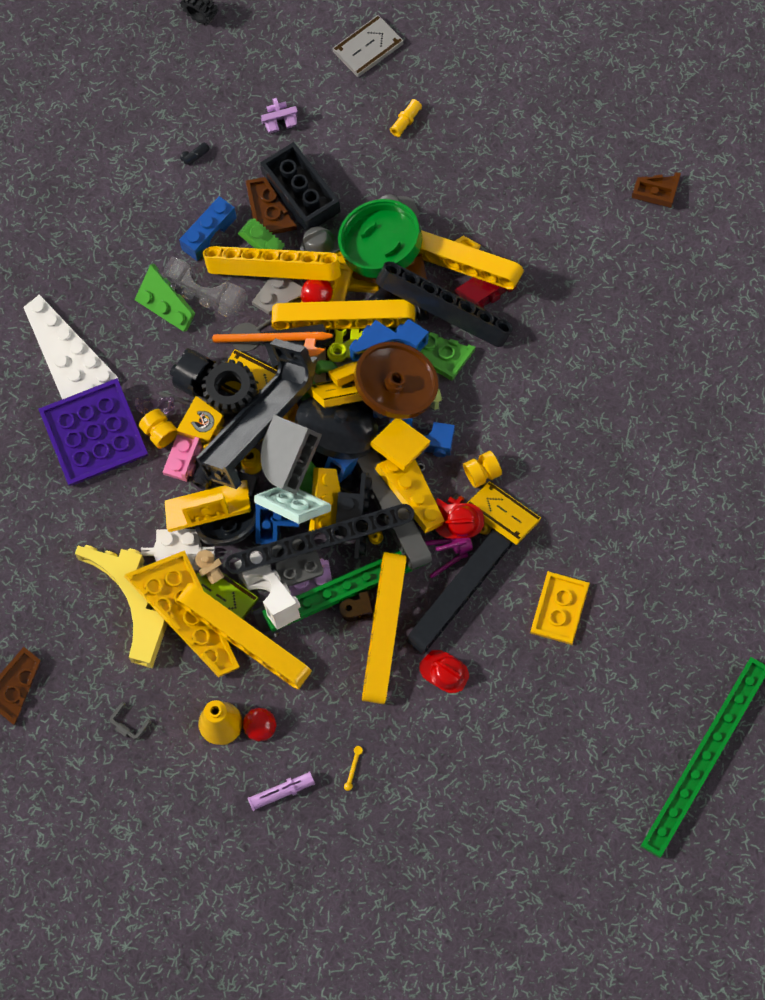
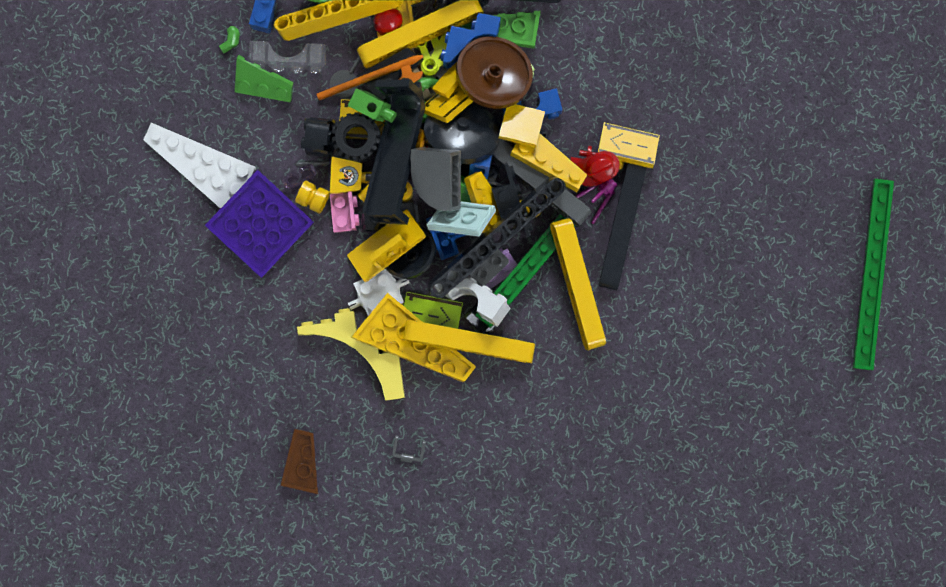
camera: 30 degrees left, 15 degrees up
(157, 251) = (232, 39): none -> bright green arm
(210, 568) = (415, 298): tan hips -> none
(220, 722) = (477, 427): yellow cone -> none
(259, 724) = (513, 405): red hair -> none
(260, 365) = (371, 106): none -> bright green torso
(276, 291) = (352, 35): light grey wing -> none
(281, 791) = (572, 433): lavender pin -> none
(358, 609) = (545, 279): dark brown leg -> none
(358, 751) = (601, 390): yellow hinge -> none
(444, 671) = (638, 296): red piece -> none
(484, 468) = (596, 113): yellow wheel -> none
(559, 608) = (707, 203): yellow tile -> none

